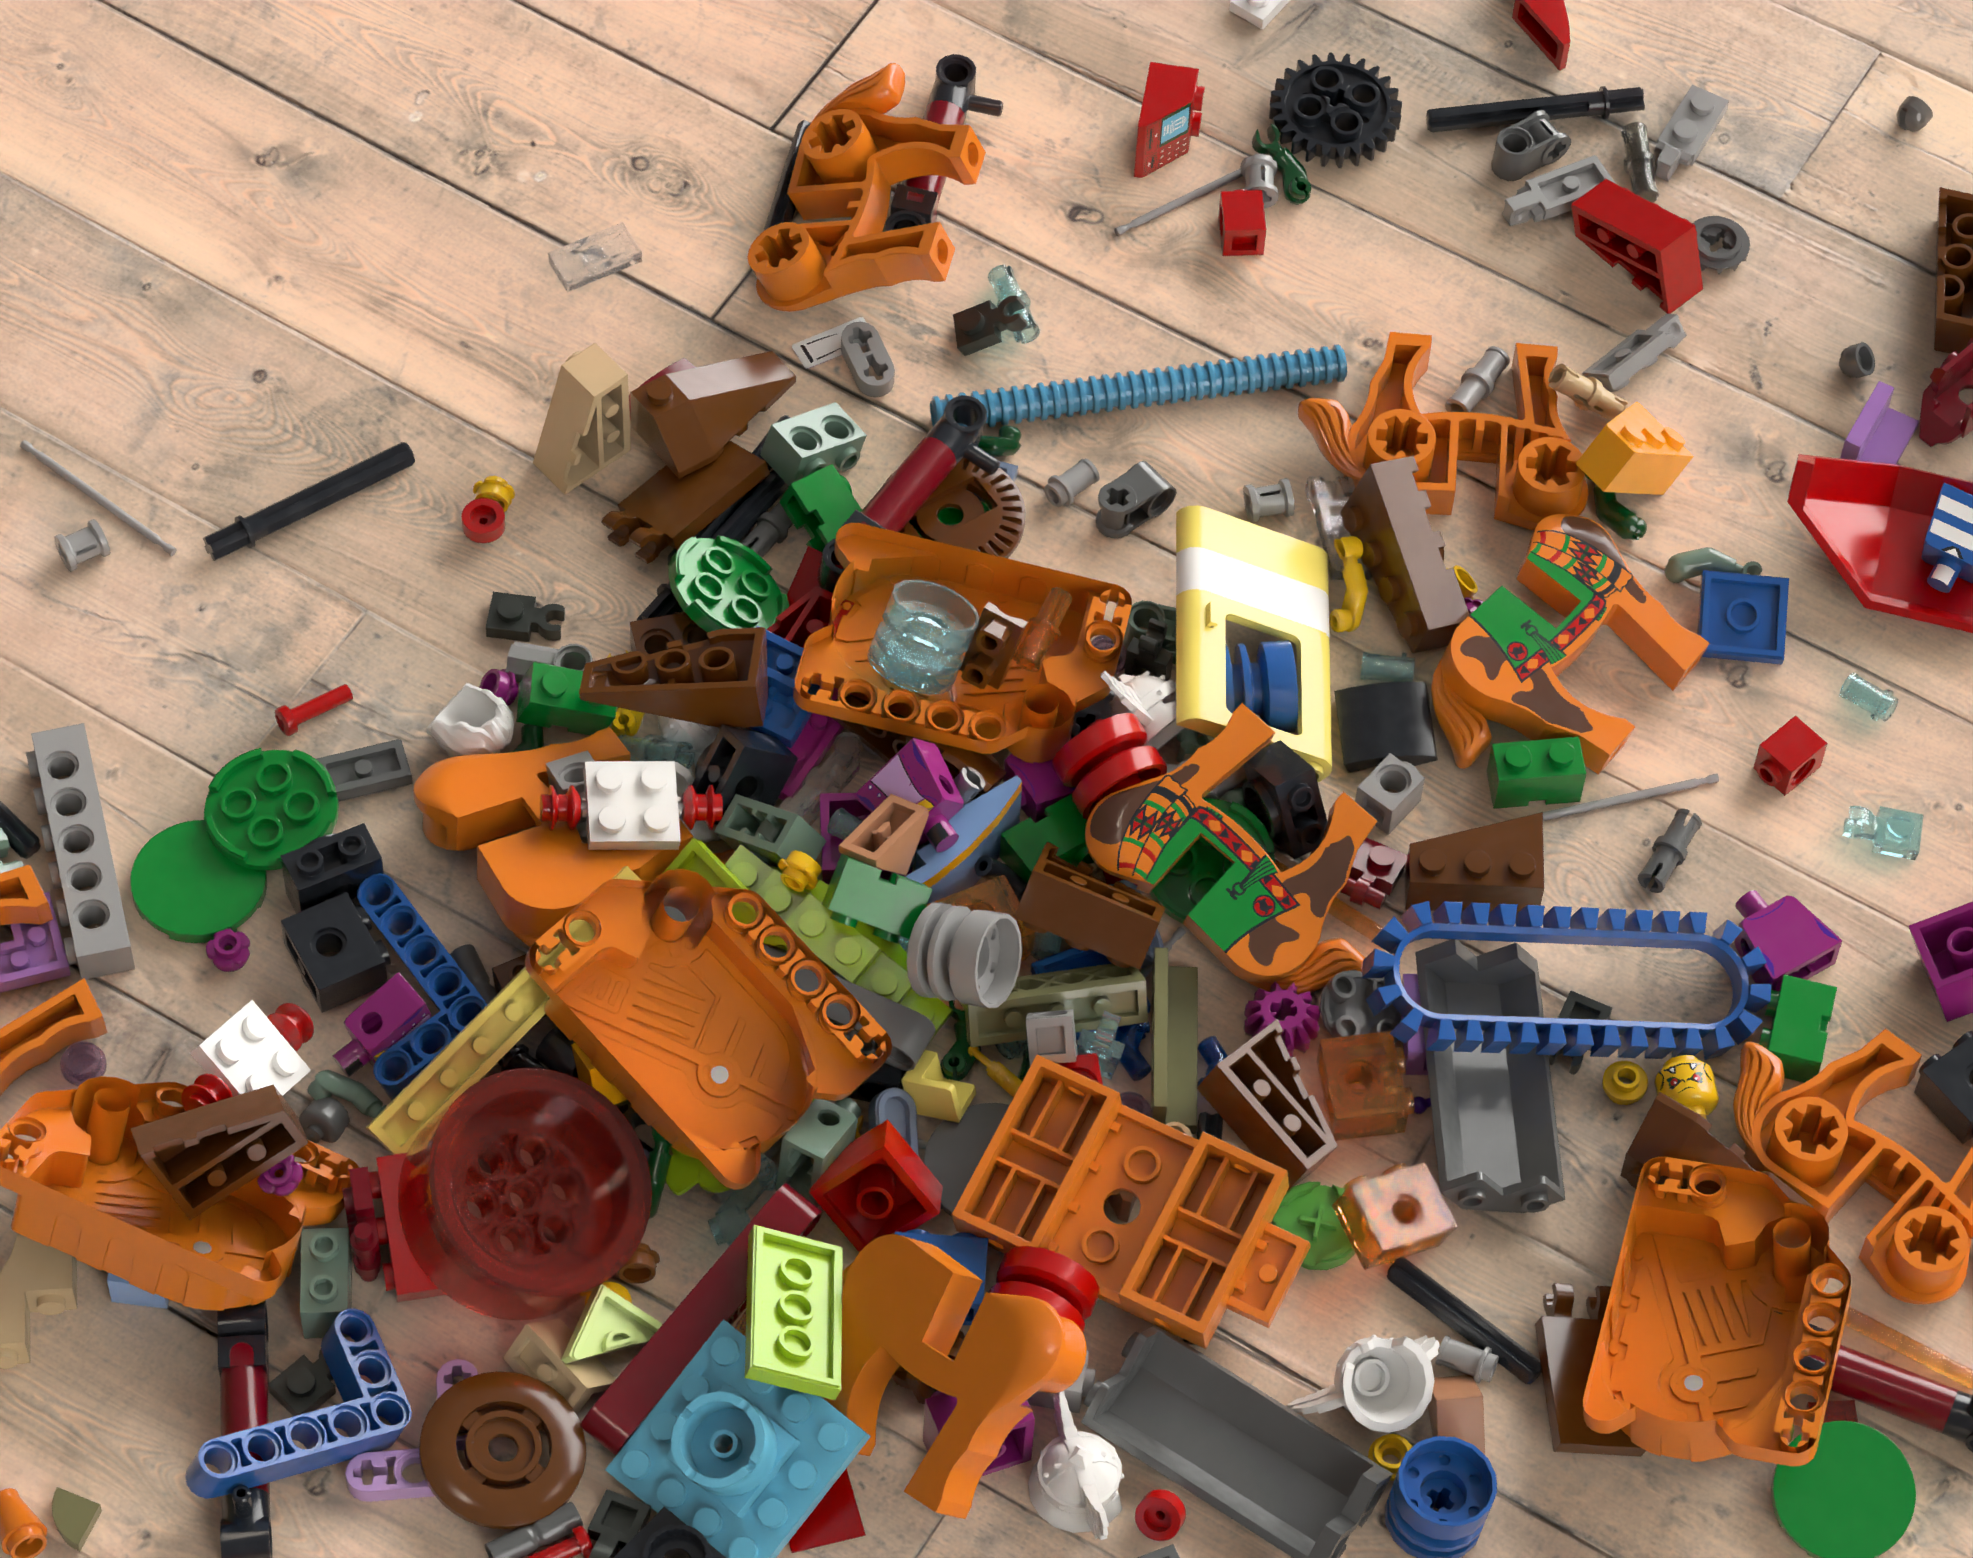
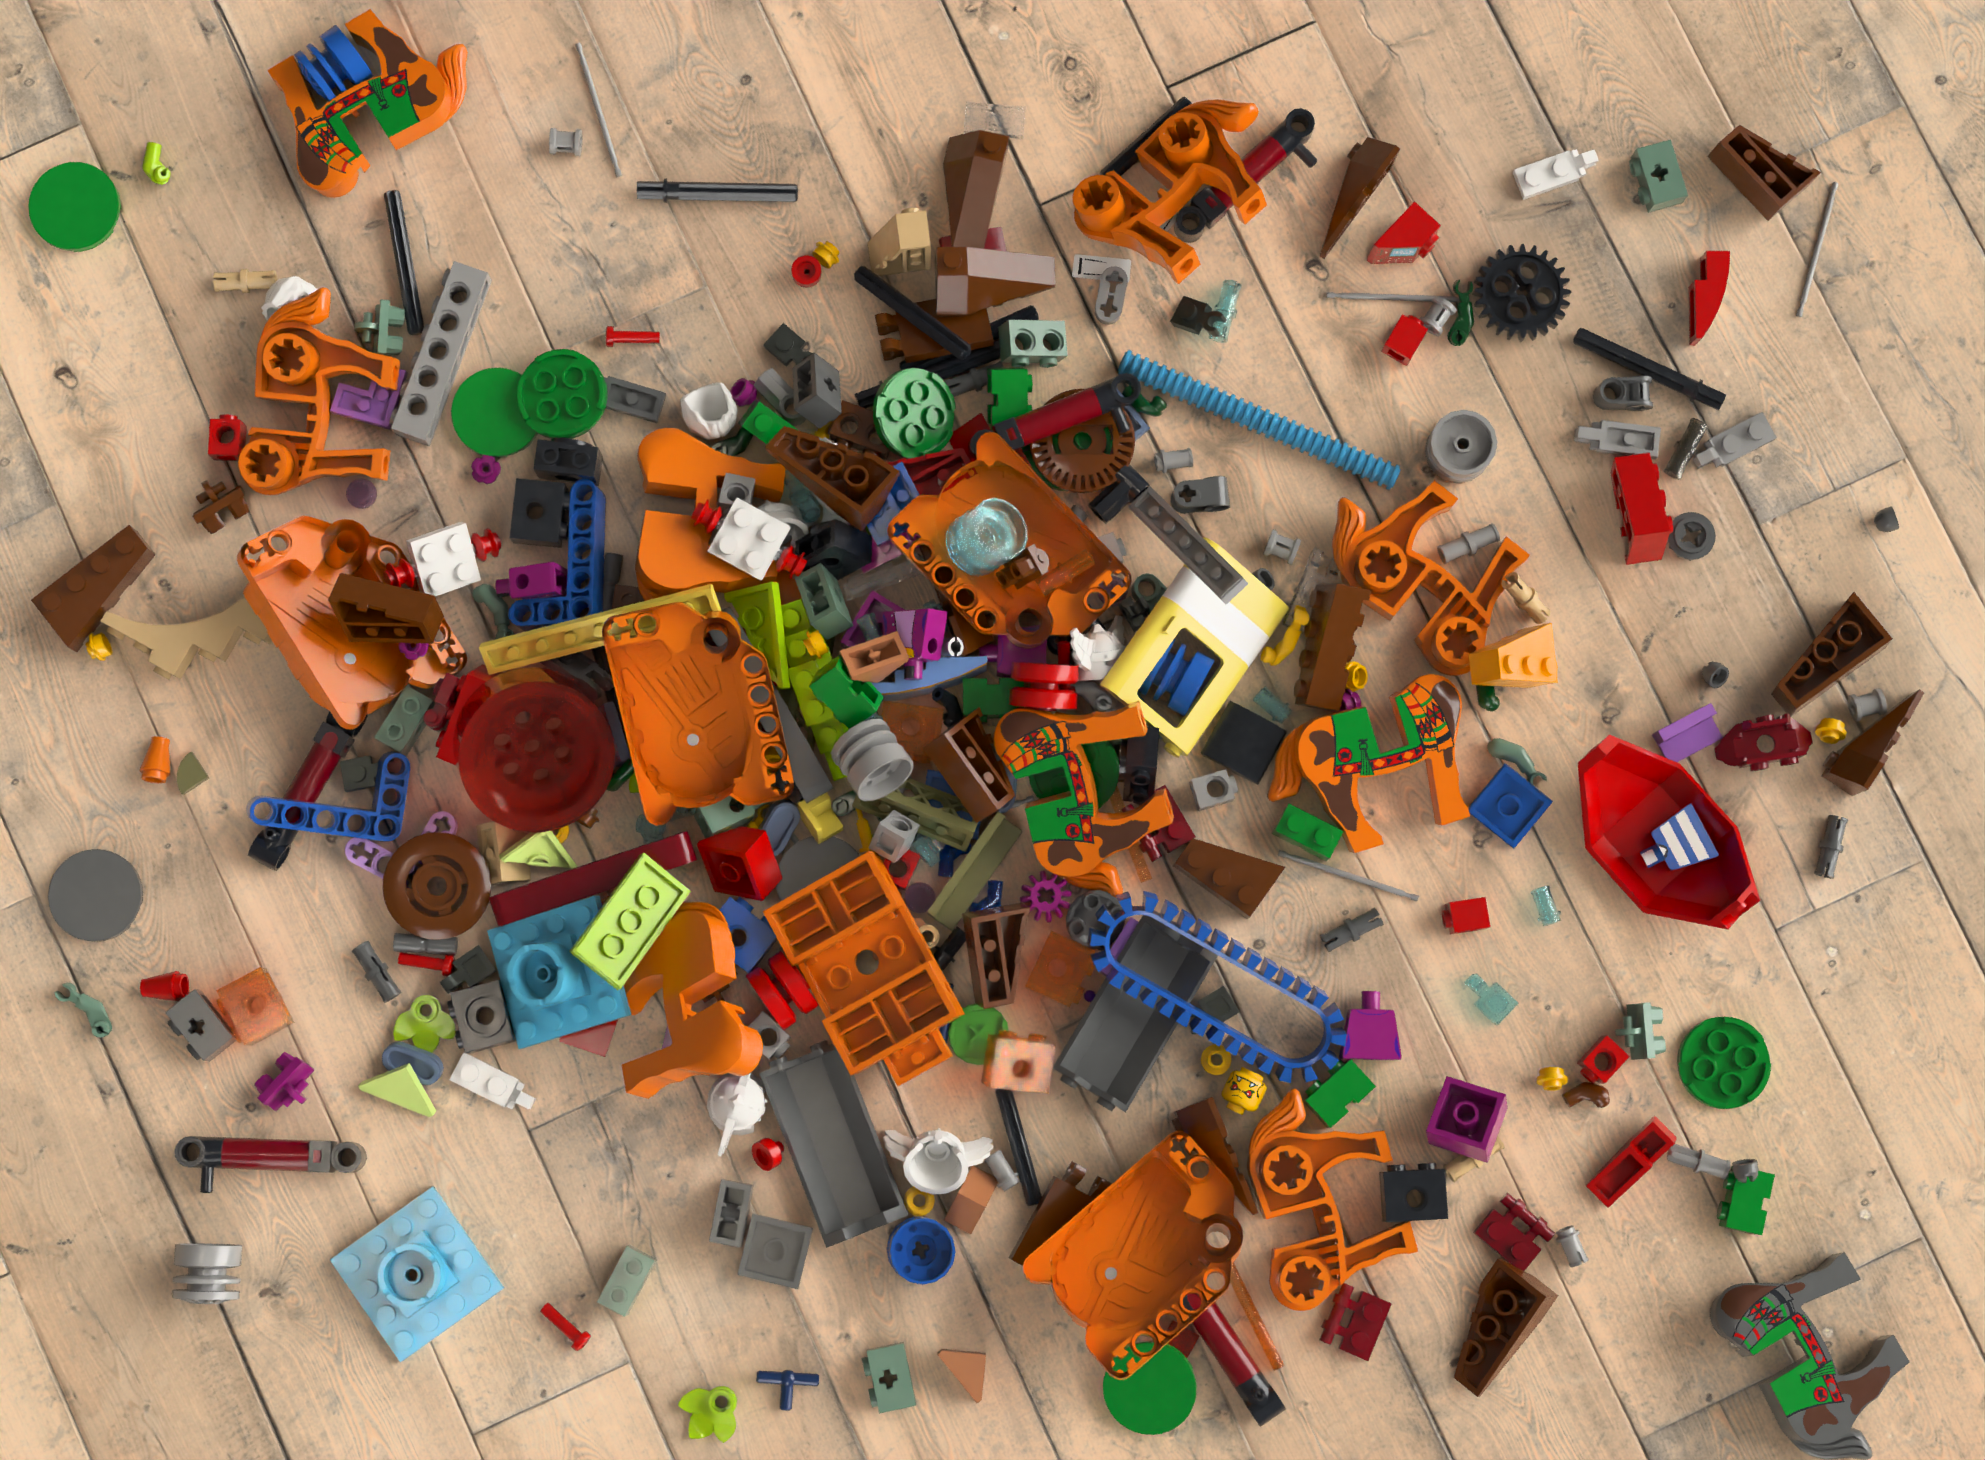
camera: 30 degrees right, 25 degrees up
(324, 1120) = (473, 613): dark grey piece -> none
(591, 624) = (816, 390): none -> dark grey brick
(615, 311) = (972, 181): none -> reddish brown wedge
(646, 490) = (912, 312): none -> black axle
(1039, 538) = (1116, 496): none -> black piece
(1067, 98) = (1365, 172): none -> reddish brown wedge
(1165, 528) = (1188, 545): none -> light grey tile
(1391, 285) = (1459, 464): none -> light grey wheel
(1636, 352) = (1579, 584): light grey hinge -> none

